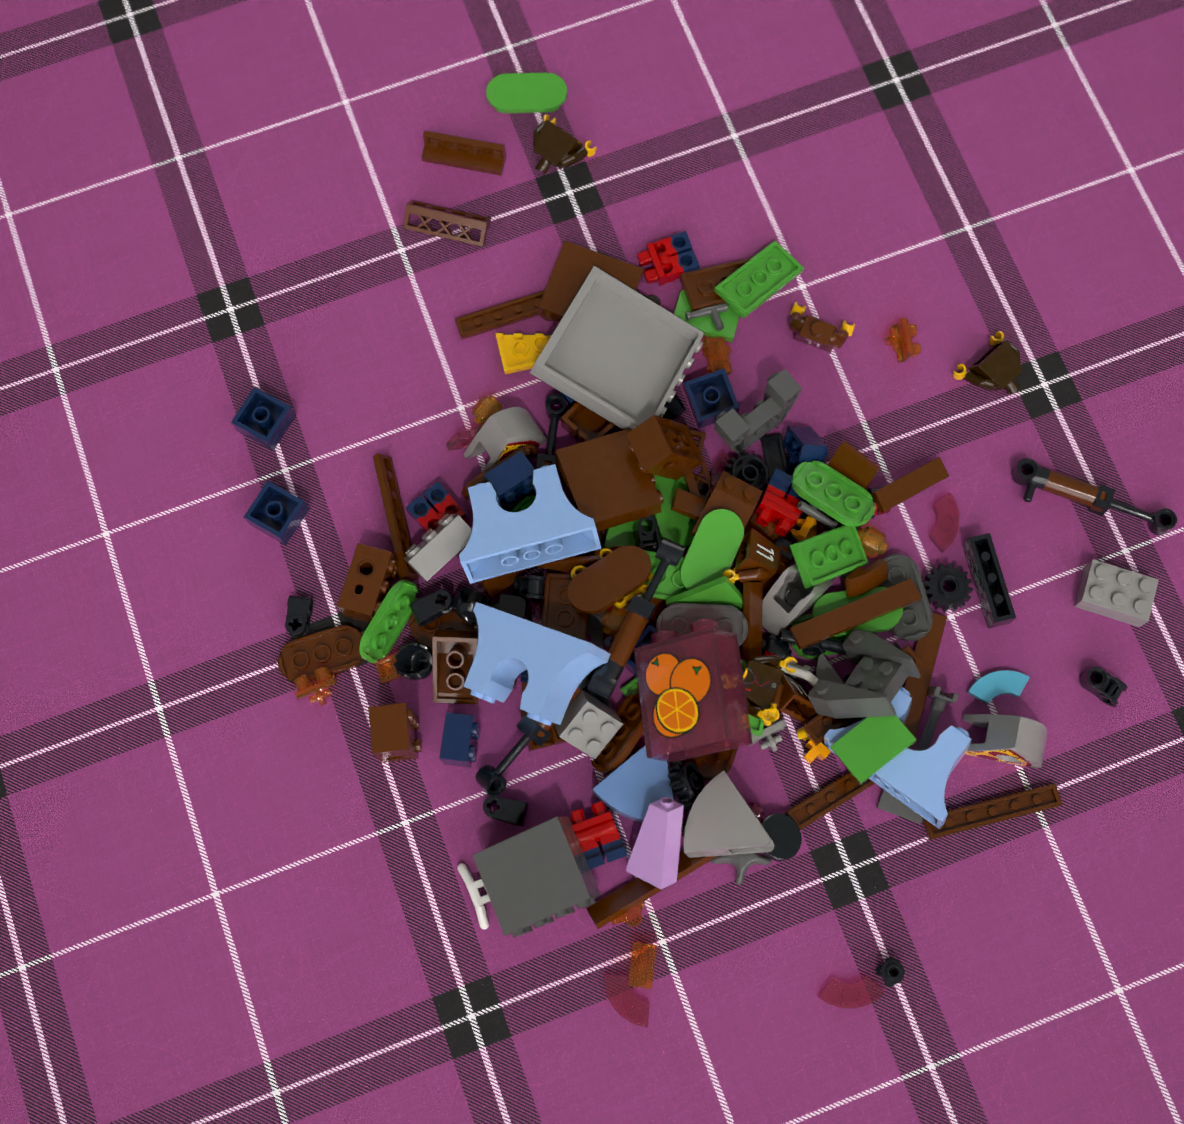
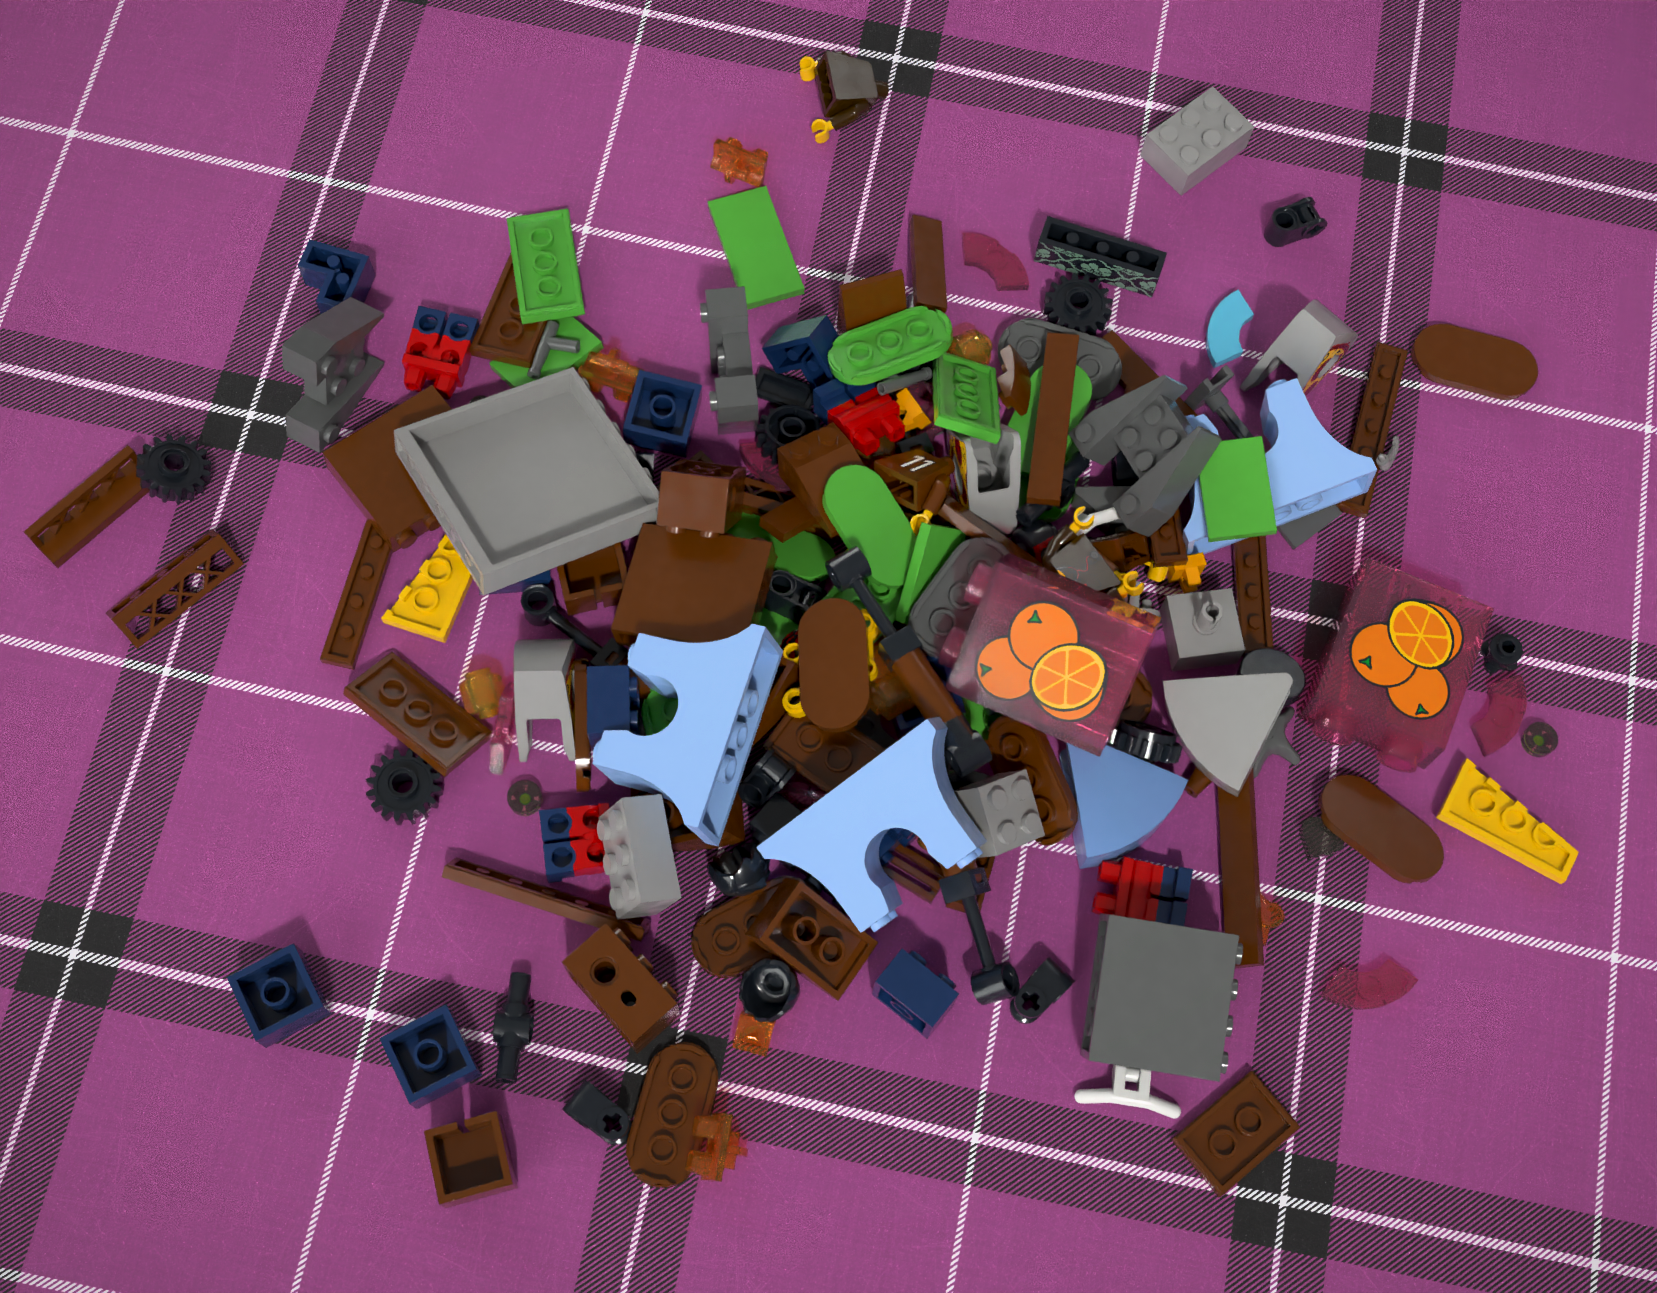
camera: 65 degrees left, 5 degrees down
(235, 567) = (471, 1162): none -> reddish brown piece
(318, 544) = (513, 1028): none -> black pin
(388, 622) = (692, 991): bright green tile -> none
(394, 732) = (856, 1069): reddish brown piece -> none
(408, 396) = (408, 804): none -> black gear
(430, 608) = (708, 928): black piece -> none
(445, 470) = (524, 797): none -> clear smoke tile
(454, 386) = (418, 713): none -> reddish brown tile
(492, 967) = (1235, 1133): none -> reddish brown tile
(511, 166) = (169, 485): none -> black gear
(526, 92) = (68, 380): bright green tile -> none
(557, 146) = (178, 386): dark brown torso -> none
(613, 212) = (334, 371): none -> dark grey wedge
(642, 965) = (1340, 937): clear orange hips -> none
(658, 844) = (1210, 819): lavender slope -> none
(675, 184) = (336, 273): none -> dark blue brick
(698, 922) = (1318, 839): none -> clear smoke tile
(726, 955) = (1380, 829): none -> reddish brown tile
(779, 1020) = (1493, 818): none -> yellow wing
(783, 779) = (1202, 629): none -> light grey brick
(817, 332) = (660, 245): reddish brown torso -> none
(833, 907) = (1395, 666): none -> clear pink brick
(850, 1025) = (1539, 739): none -> clear smoke tile
(856, 383) = (756, 247): none -> bright green tile
(971, 832) = (1385, 461): none -> light grey piece
(1086, 852) = (1474, 361): none -> reddish brown tile
(1096, 498) = (1072, 90): black piece -> none

